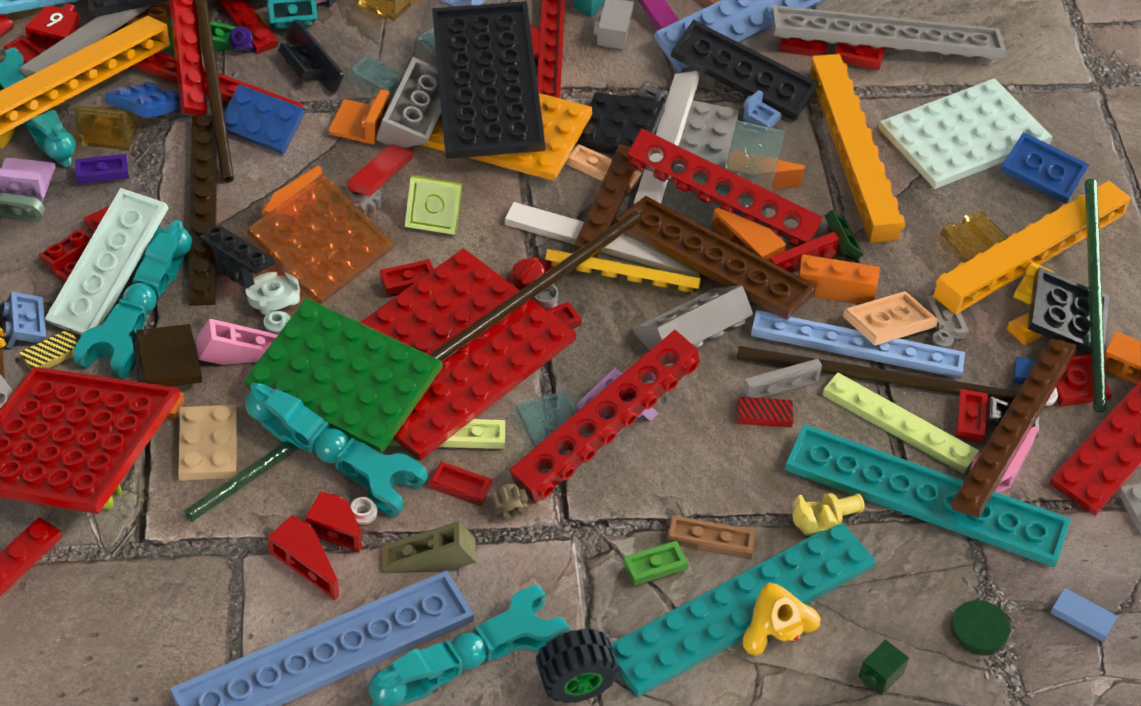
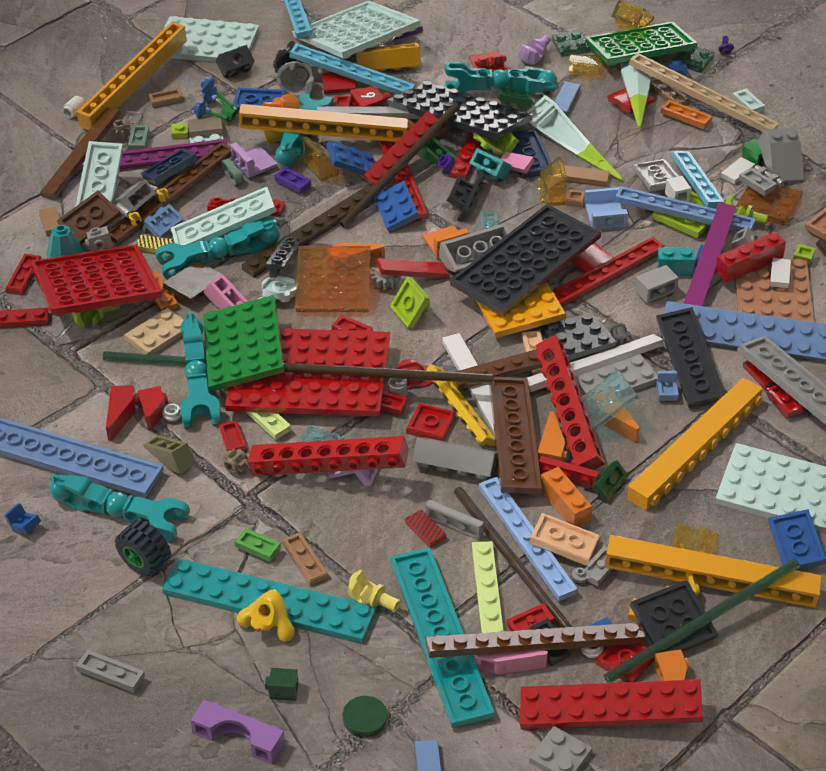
camera: 55 degrees right, 5 degrees down
(616, 309) = (430, 422): none -> red tile

